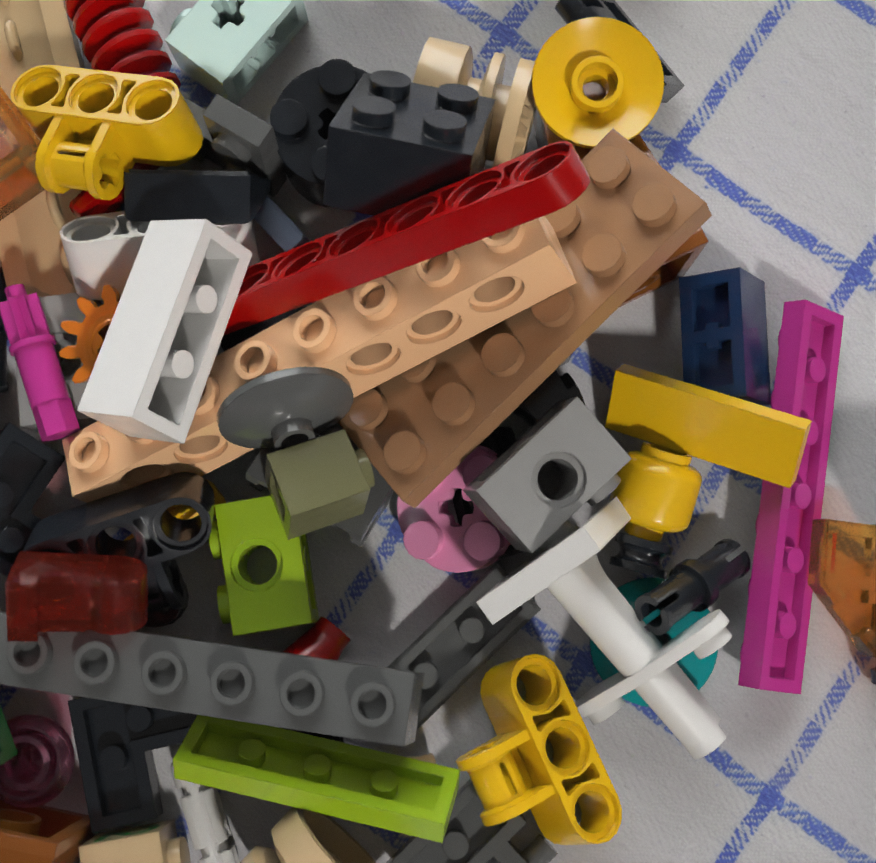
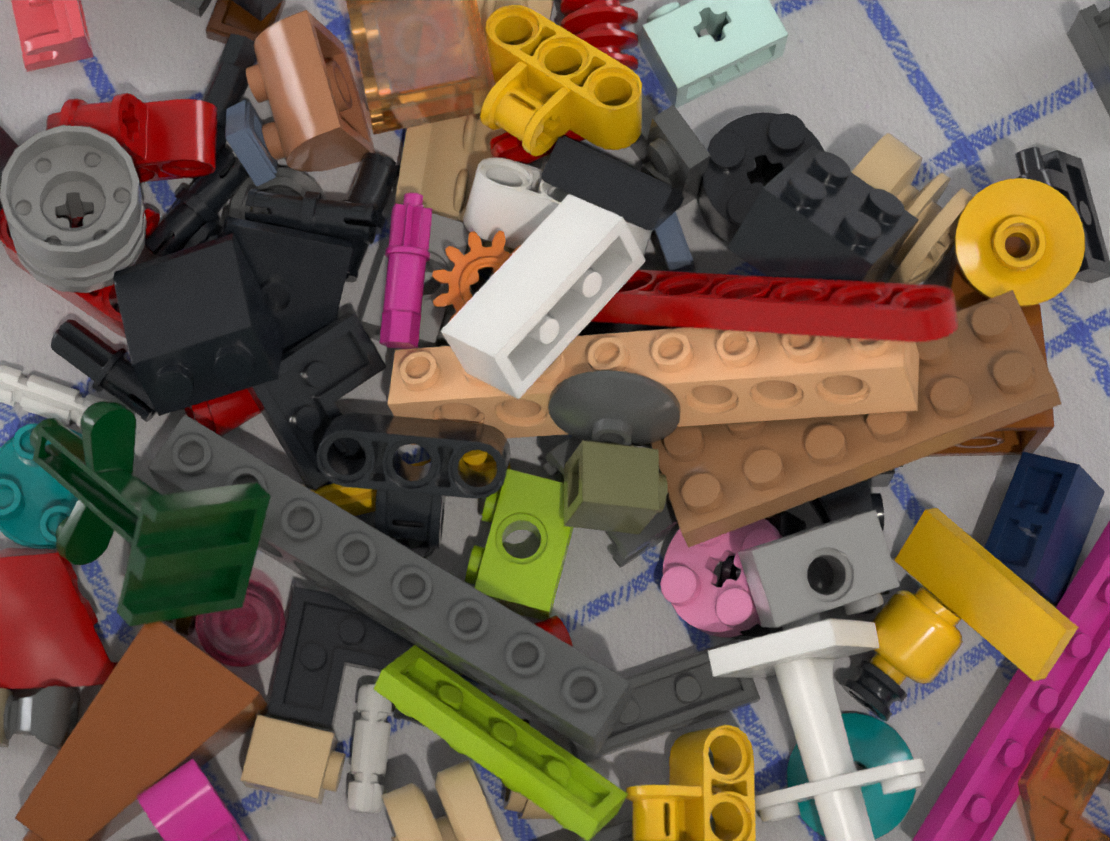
camera: 15 degrees right, 5 degrees down
(75, 594) = (366, 489): clear red leg -> none
(692, 586) = (909, 734): black pin -> none

